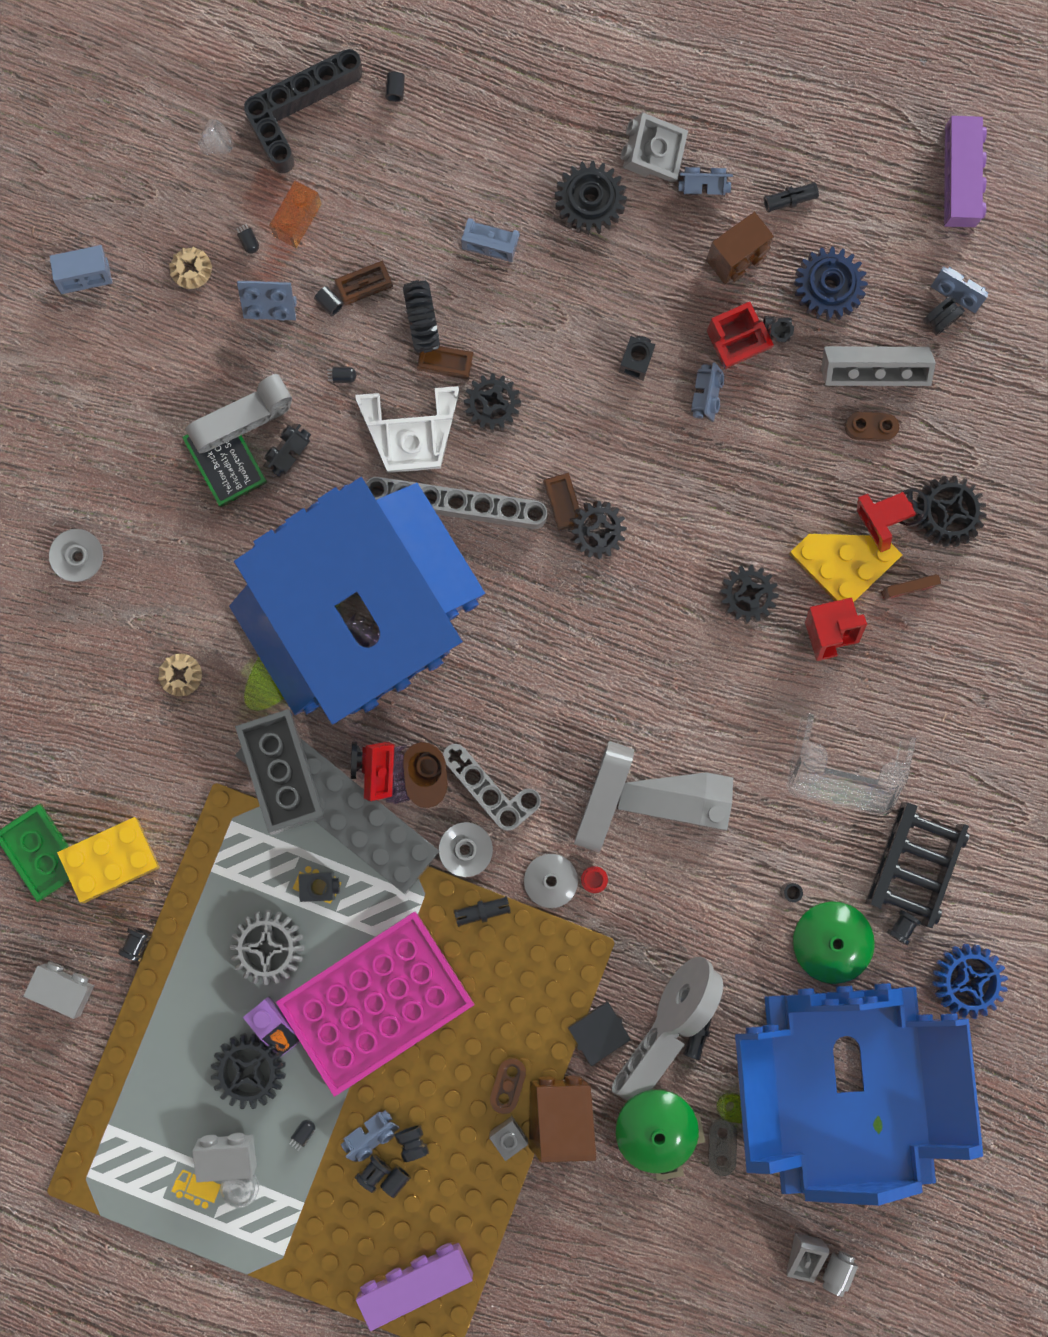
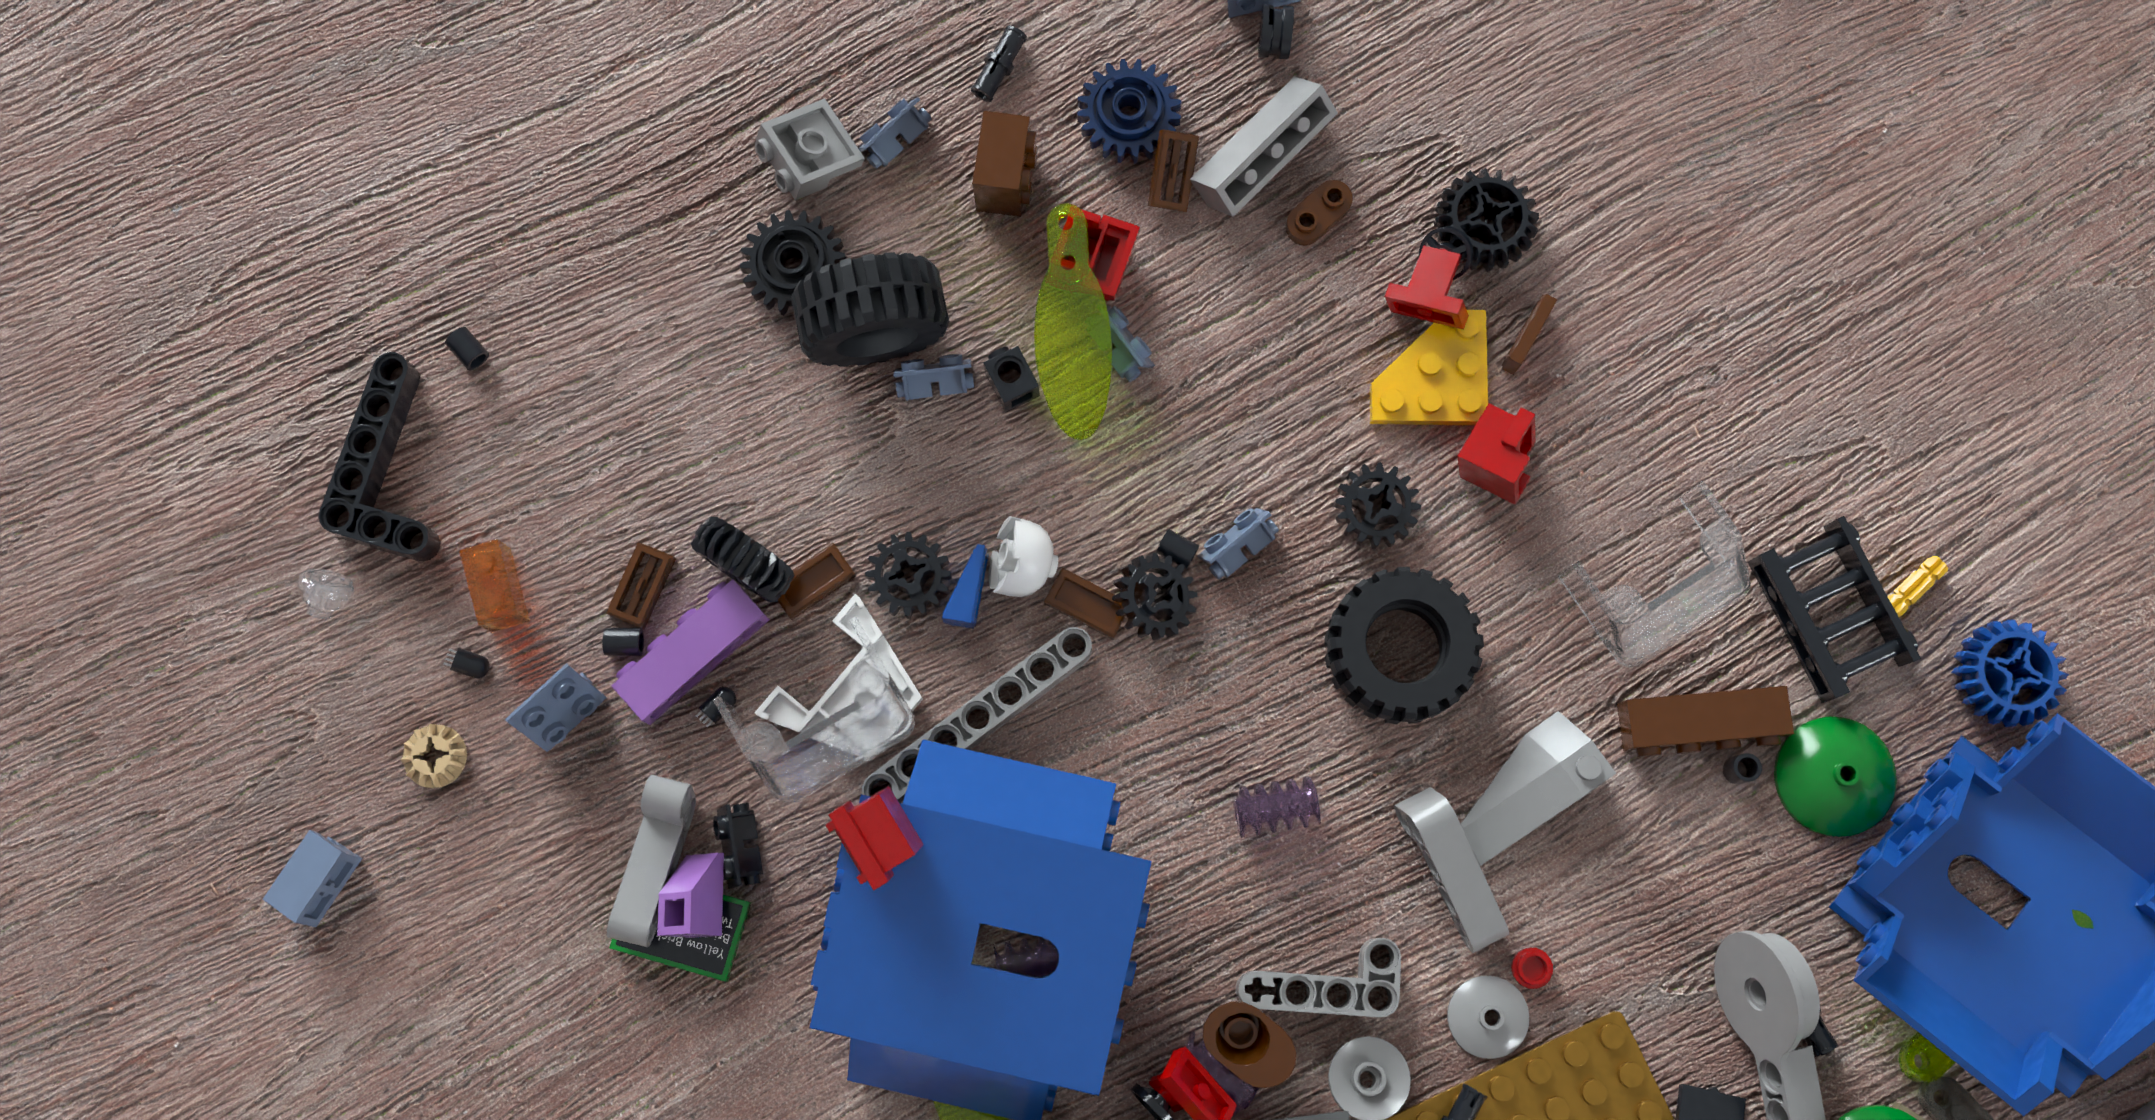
camera: 40 degrees left, 5 degrees down
(241, 451) = (693, 898): none -> medium lavender slope
(348, 499) = (875, 836): none -> red plate
(354, 336) = (689, 652): none -> medium lavender brick
(376, 446) = (833, 745): none -> clear windscreen
(489, 241) = (732, 409): sand blue hinge -> none
(509, 440) = (965, 600): none -> blue slope
(551, 683) = (1276, 806): none -> clear purple piece
(553, 449) = (1022, 560): none -> white cylinder
(594, 313) = (948, 373): none -> sand blue hinge
(600, 255) = (870, 309): none -> black tyre
(633, 518) = (1178, 547): none -> black hinge
(654, 543) = (1248, 531): none -> sand blue hinge
(688, 361) = (1072, 331): none -> clear neon green plant
(716, 645) = (1446, 616): none -> black tyre
(779, 328) = (1127, 204): black piece -> none
(798, 851) = (1705, 719): none -> reddish brown brick
(839, 320) = (1159, 166): none -> reddish brown tile
(904, 927) = (1889, 687): black bush -> none
(969, 895) = (1917, 584): none -> yellow axle

